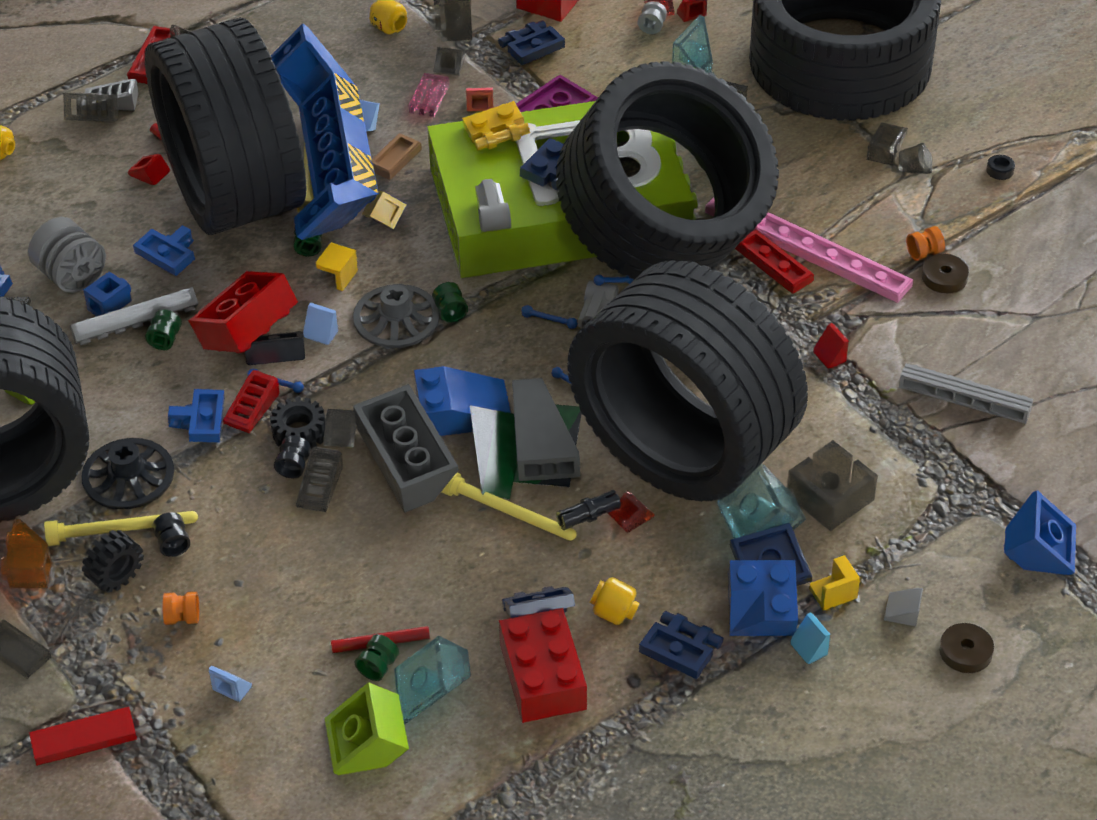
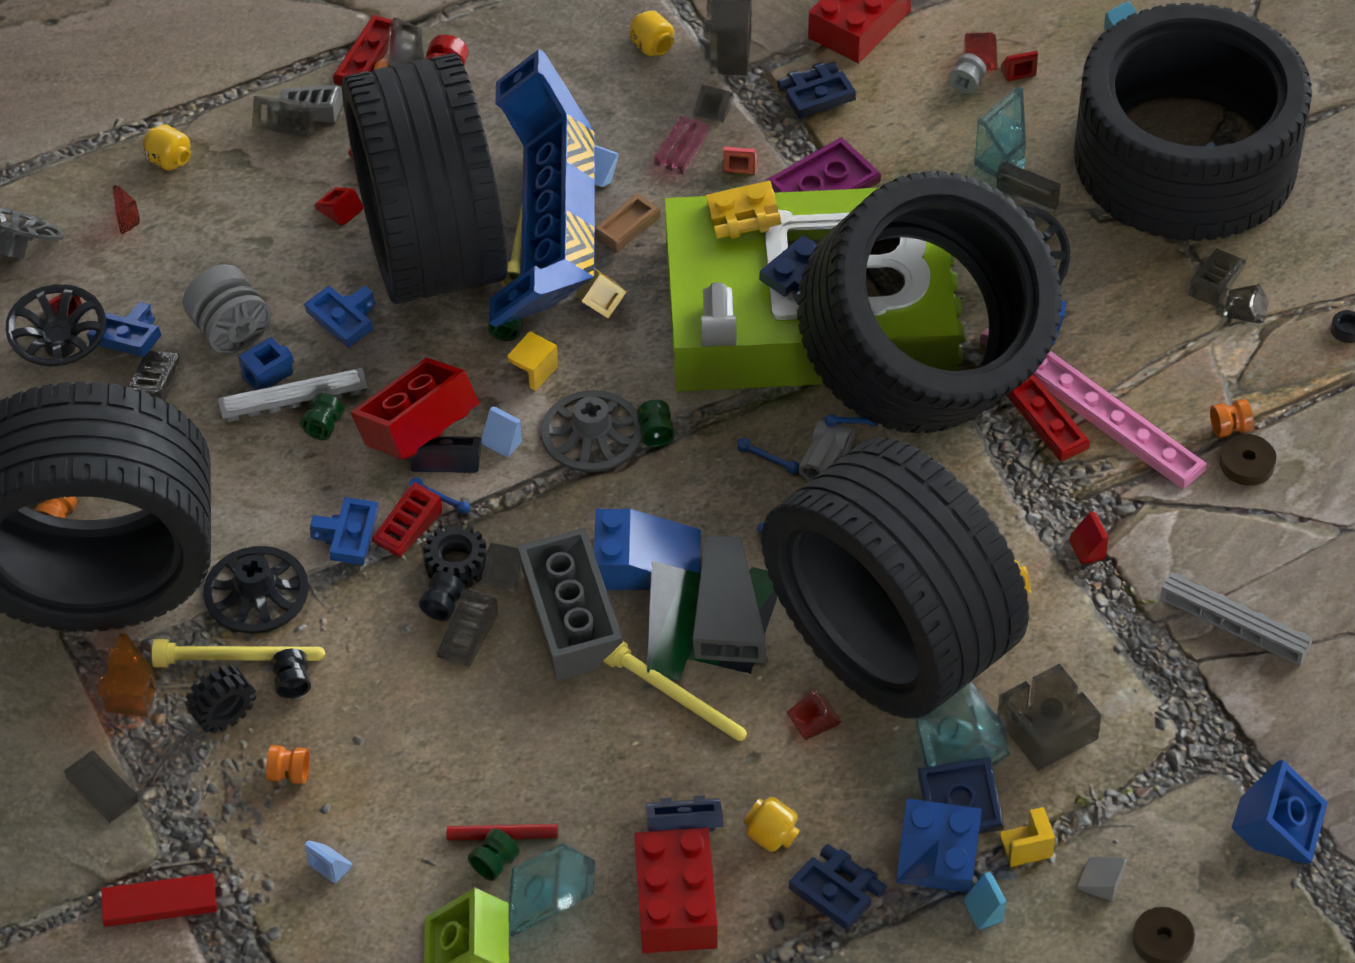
camera: 10 degrees right, 5 degrees up
(588, 509) = (763, 708): black pin -> none

